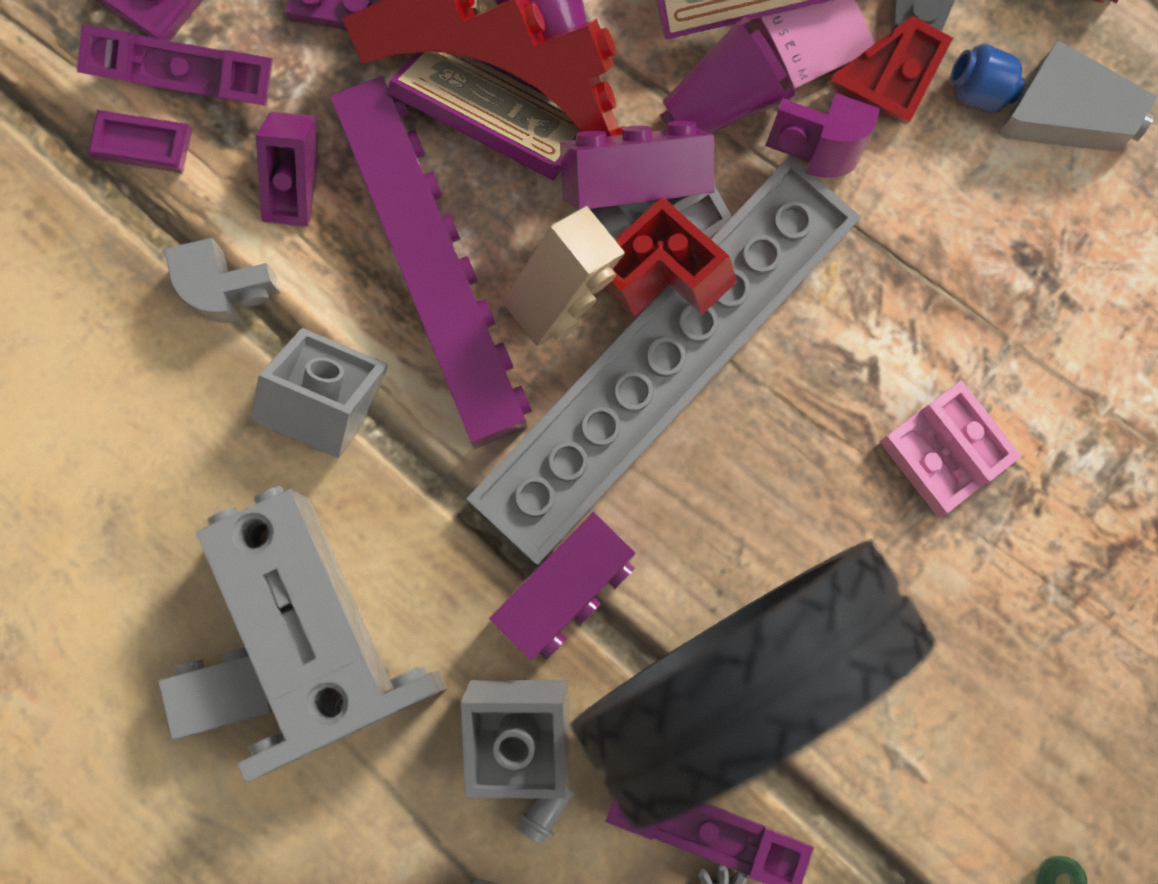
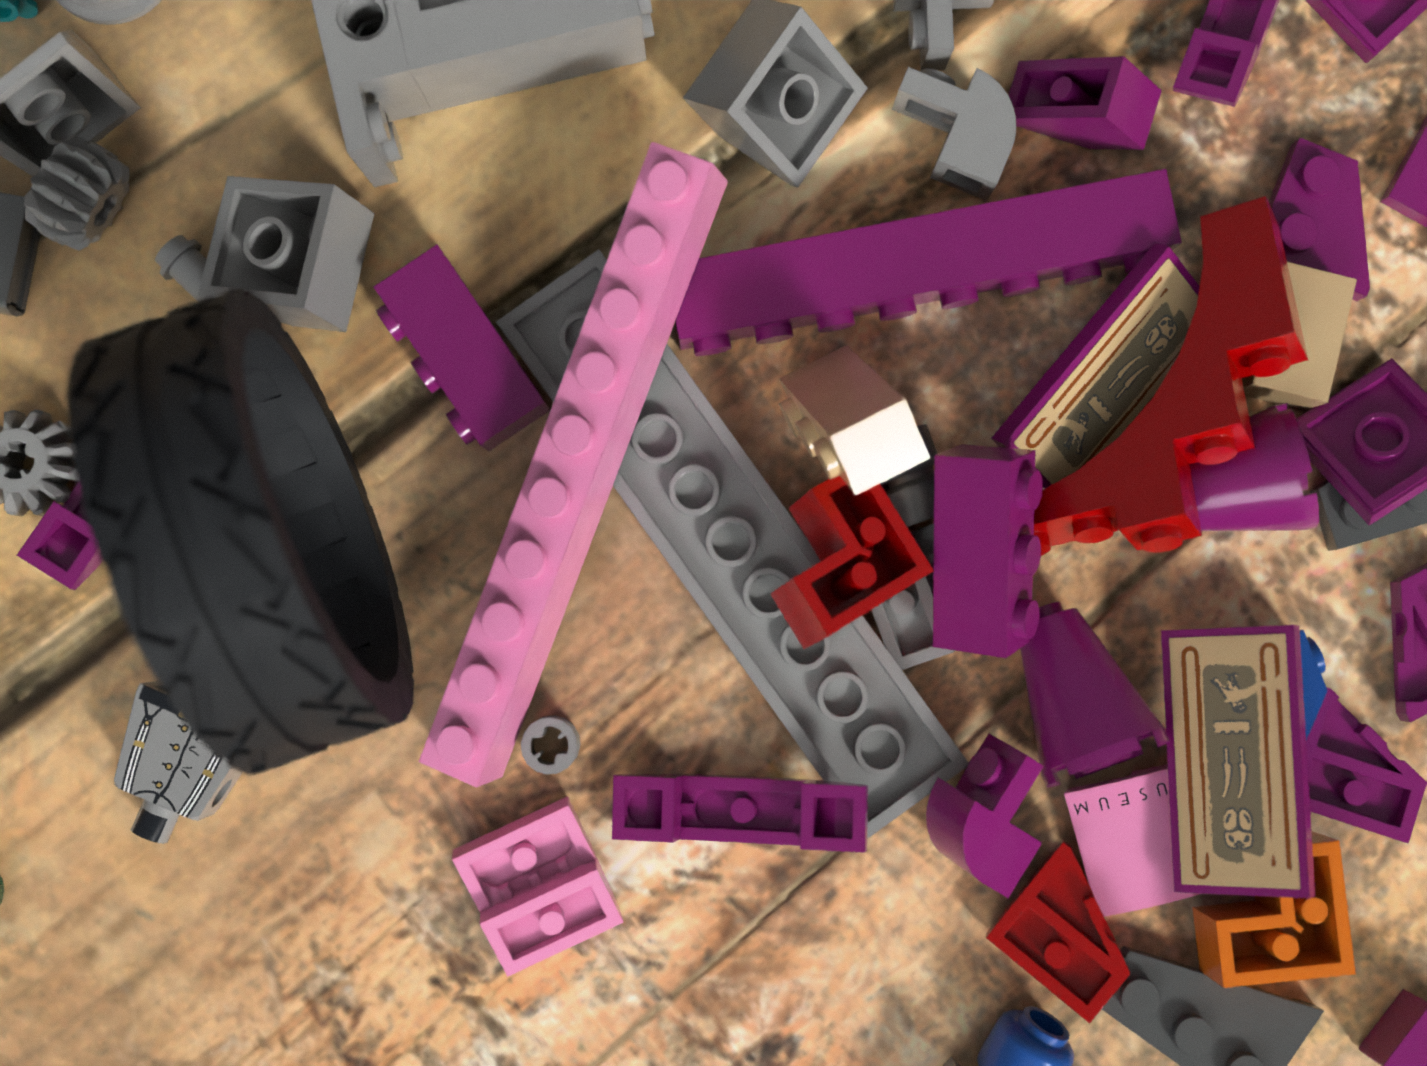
camera: 100 degrees right, 5 degrees up
(321, 238) = (977, 124): none -> light grey brick
(639, 475) = (574, 465): none -> bright pink brick
(852, 448) = (564, 758): none -> light grey bush
(860, 310) = (741, 810): none -> magenta slope
(920, 736) = (168, 767): none -> light grey torso

